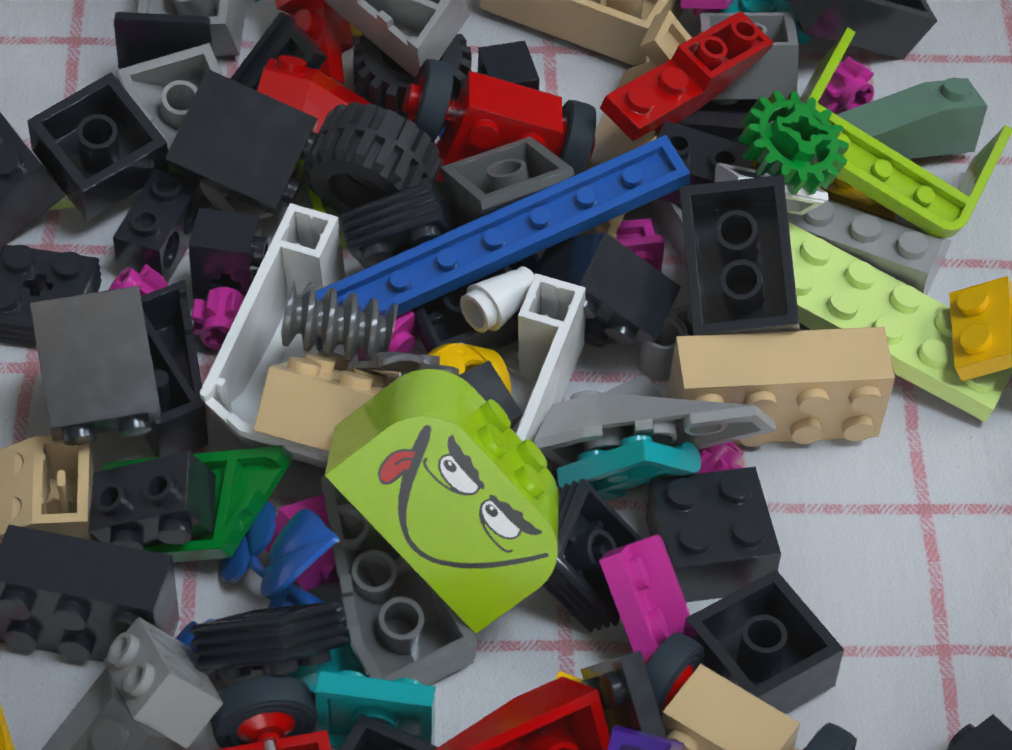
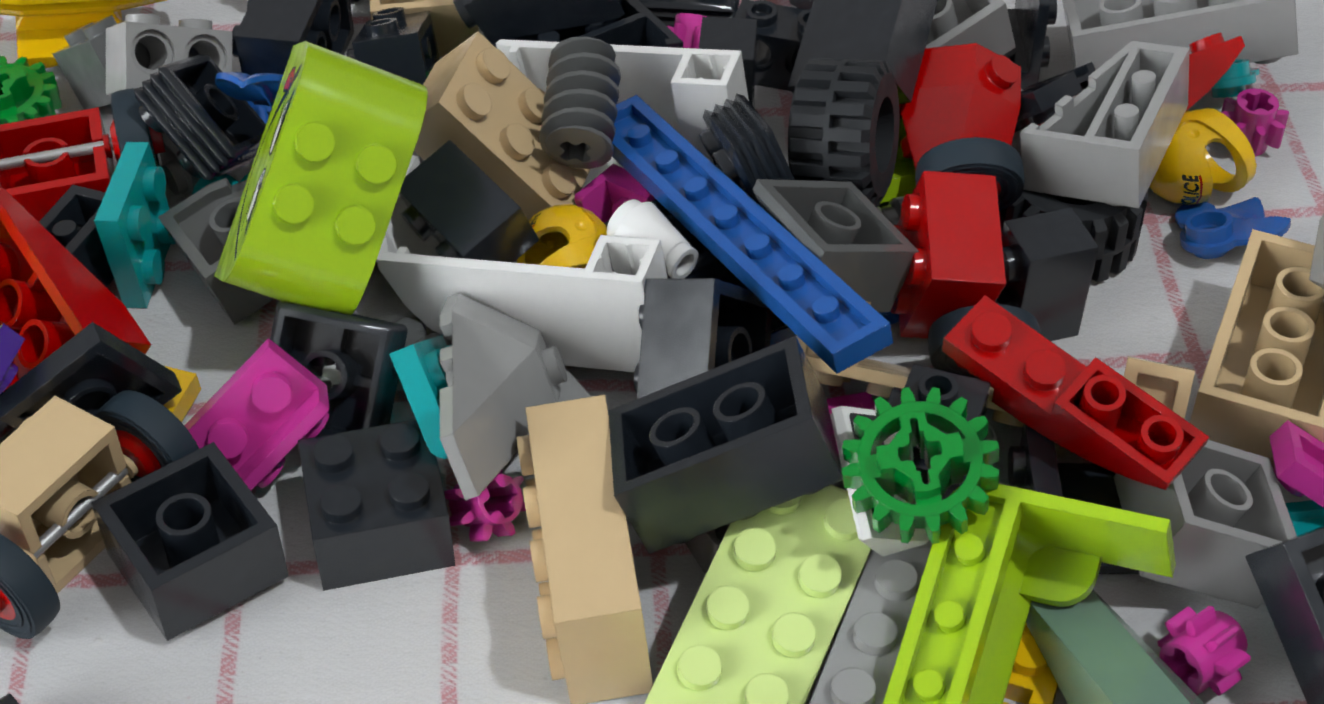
camera: 90 degrees right, 5 degrees down
(404, 363) = (518, 162): flat silver plate -> none

